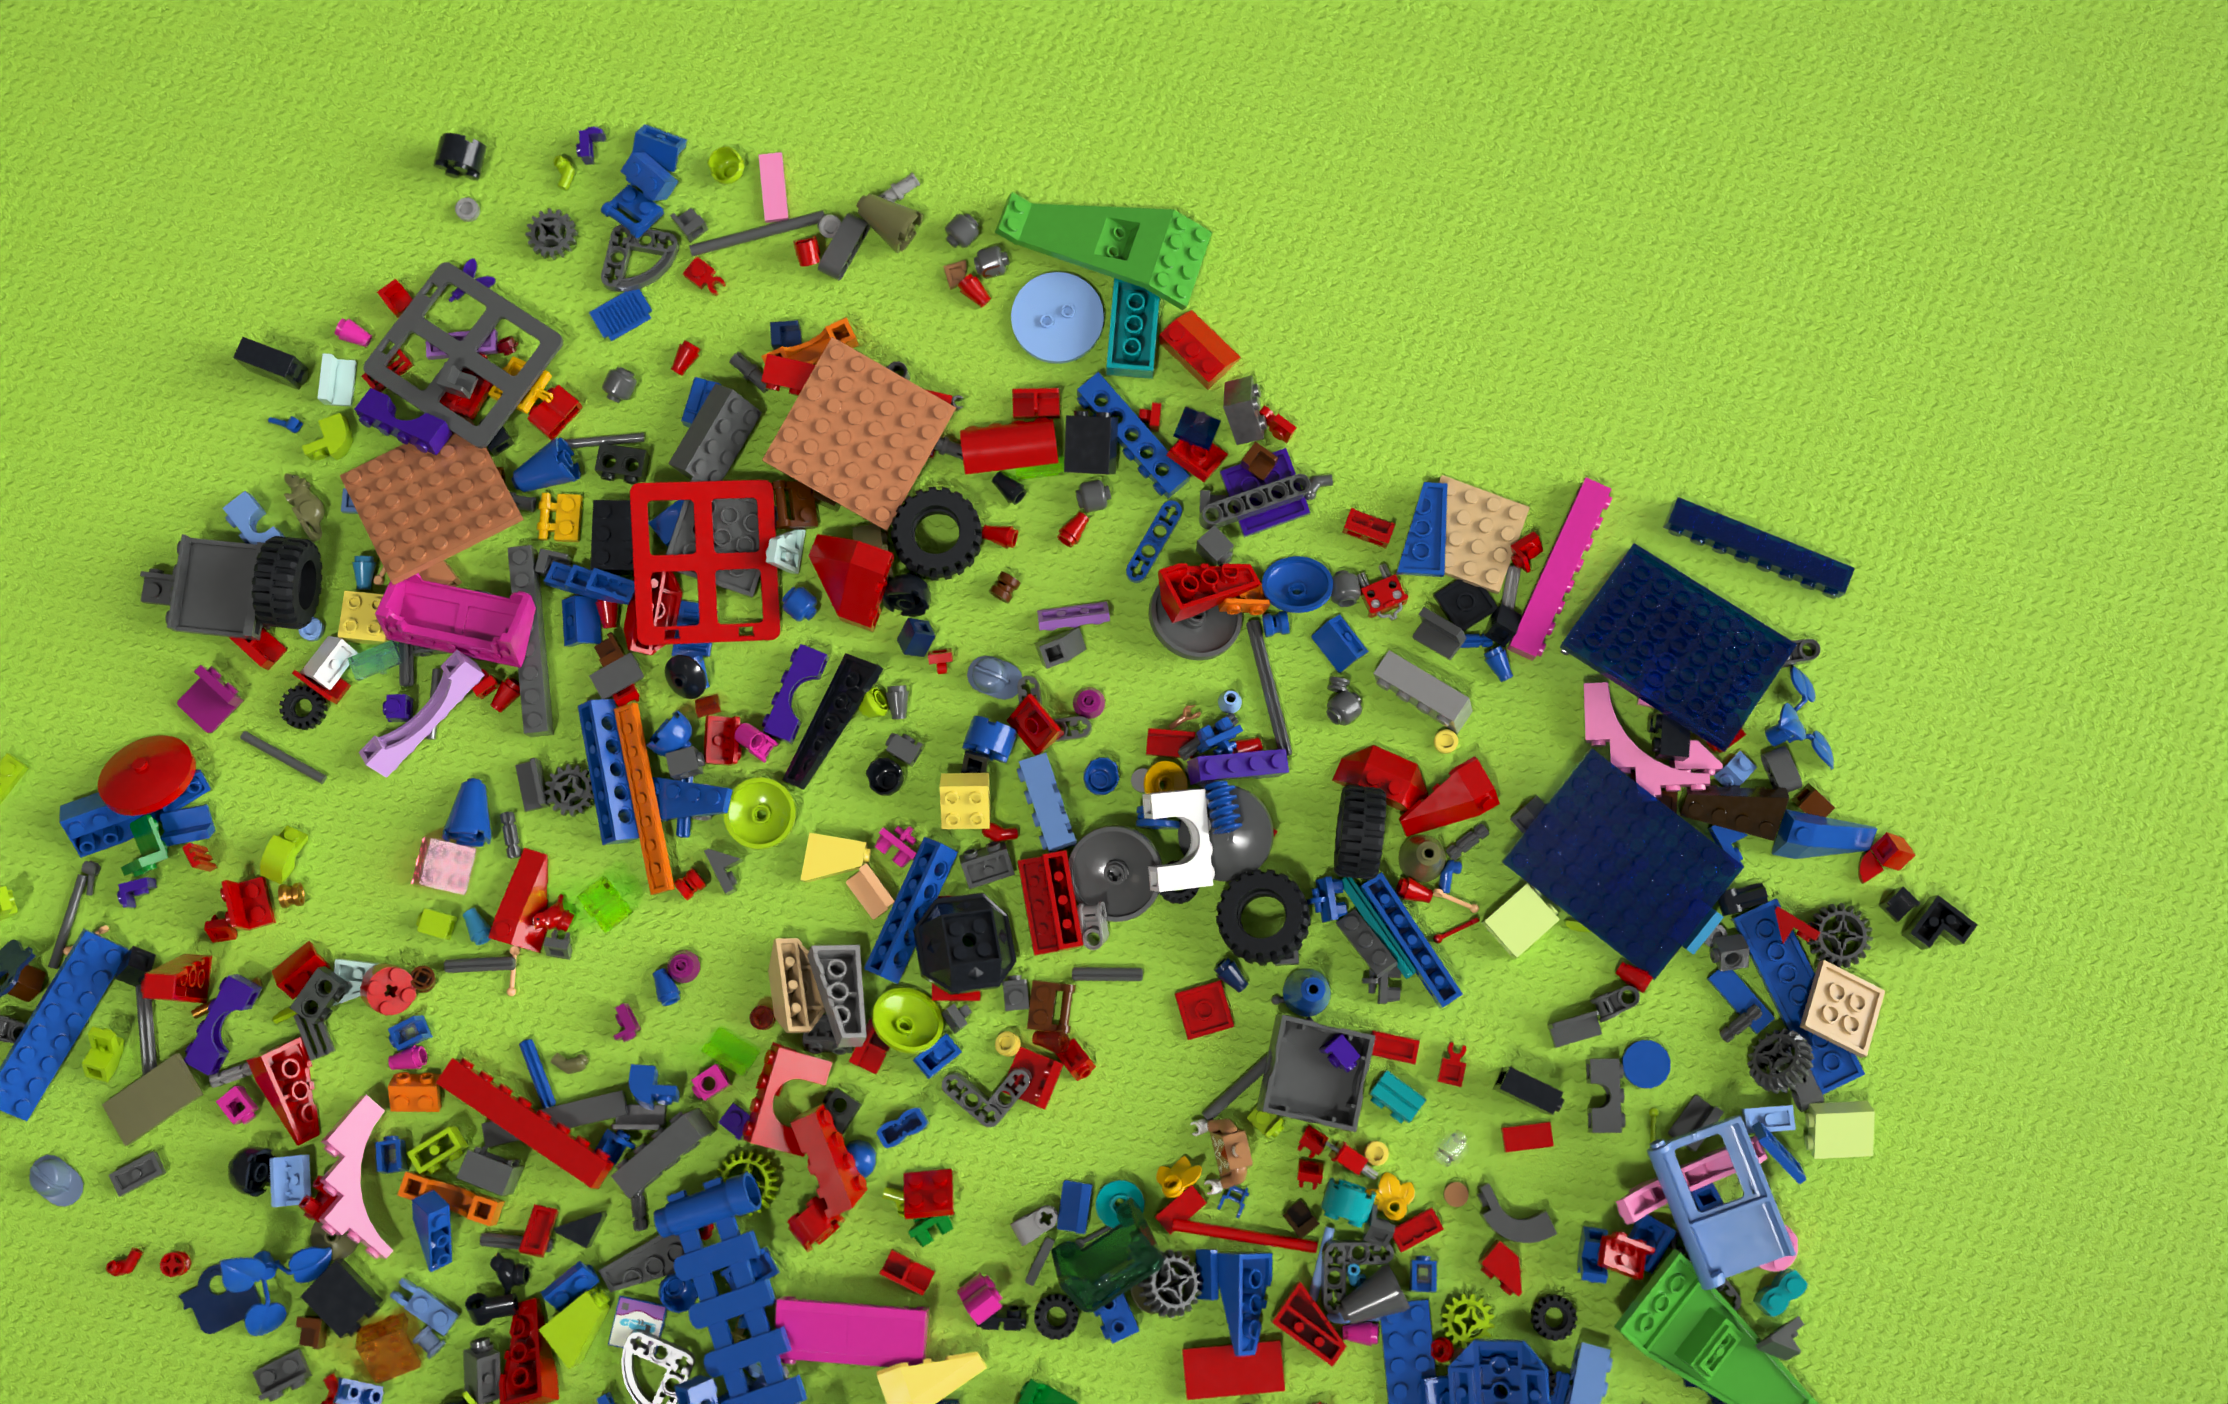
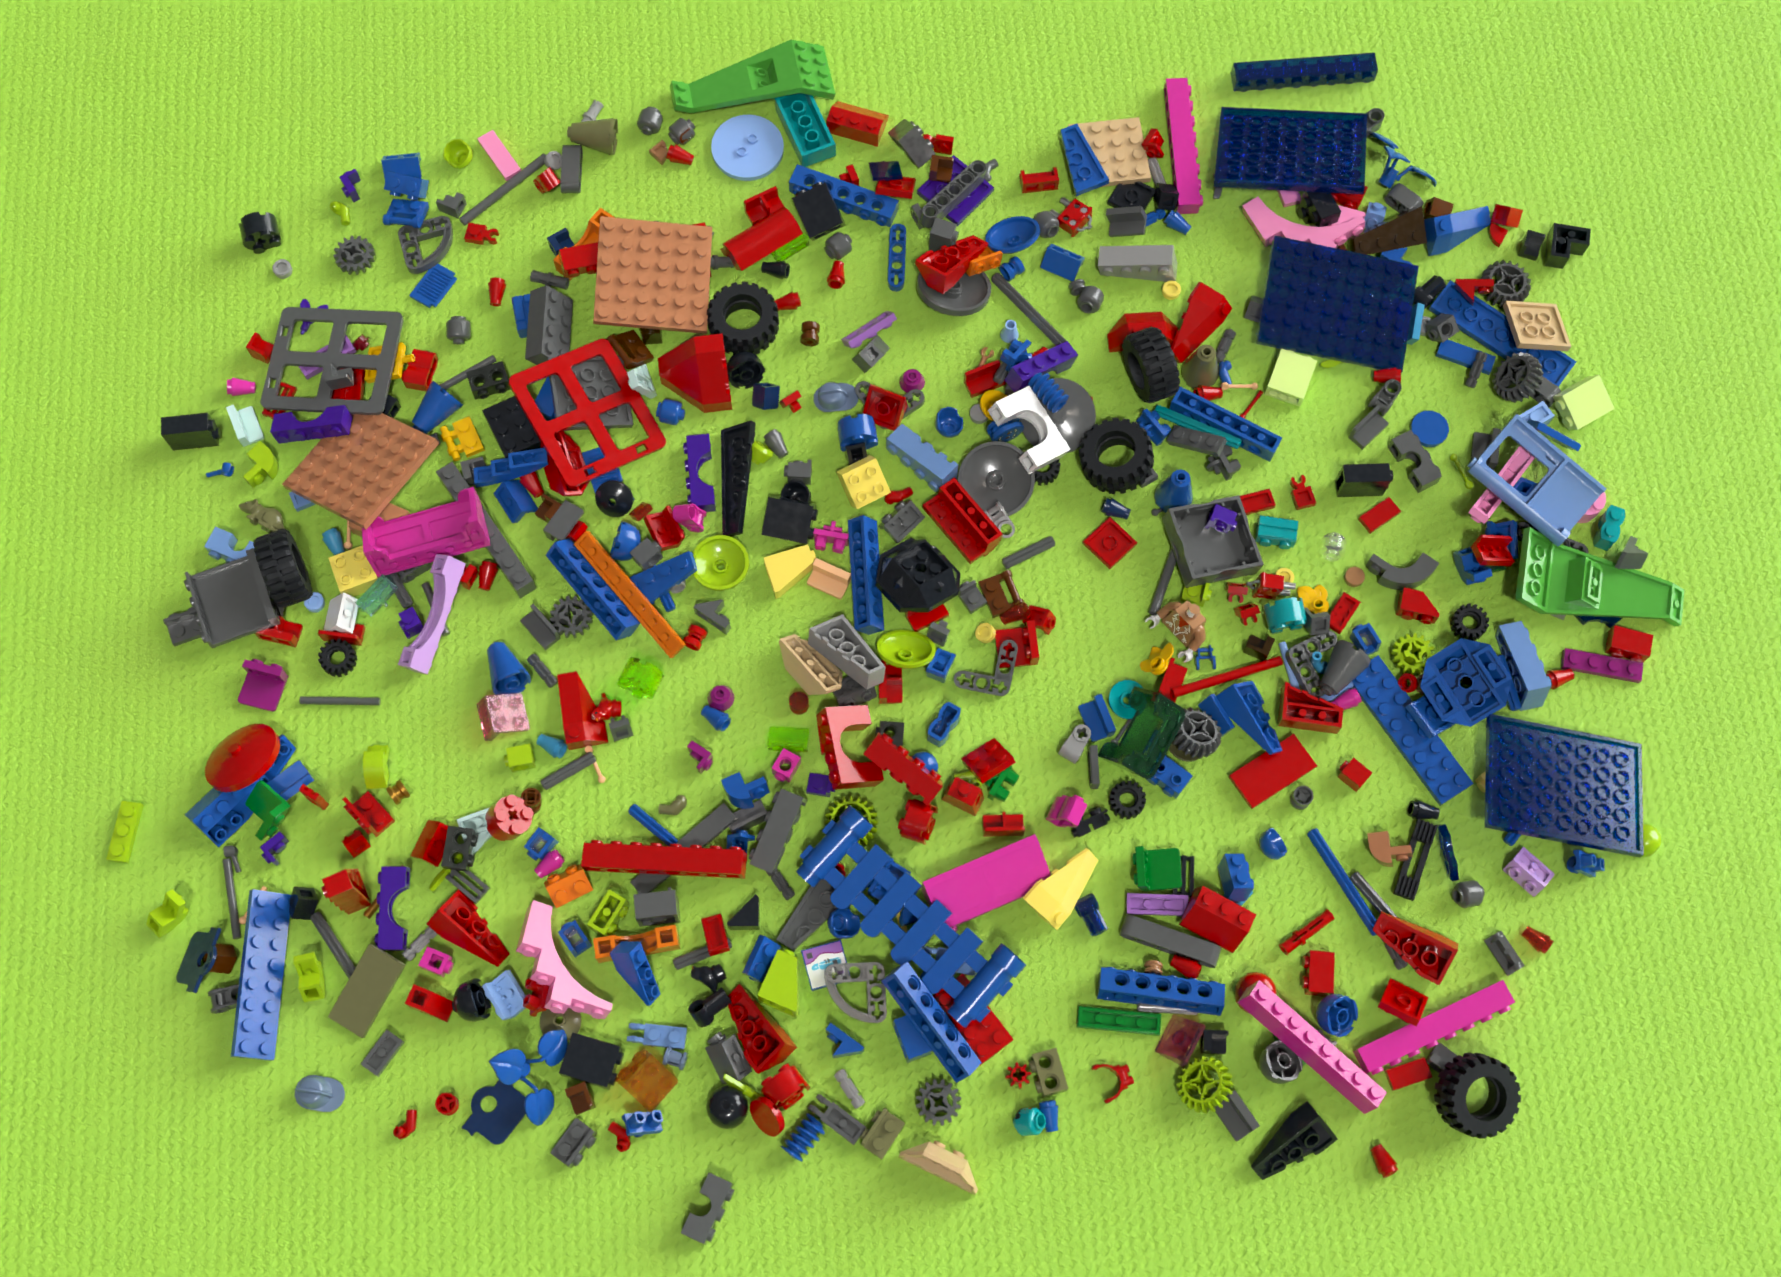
camera: 30 degrees left, 10 degrees down
(208, 1147) = (429, 1003): none -> red slope
(861, 802) = (789, 519): none -> black brick
(880, 1219) = (964, 796): none -> red torso

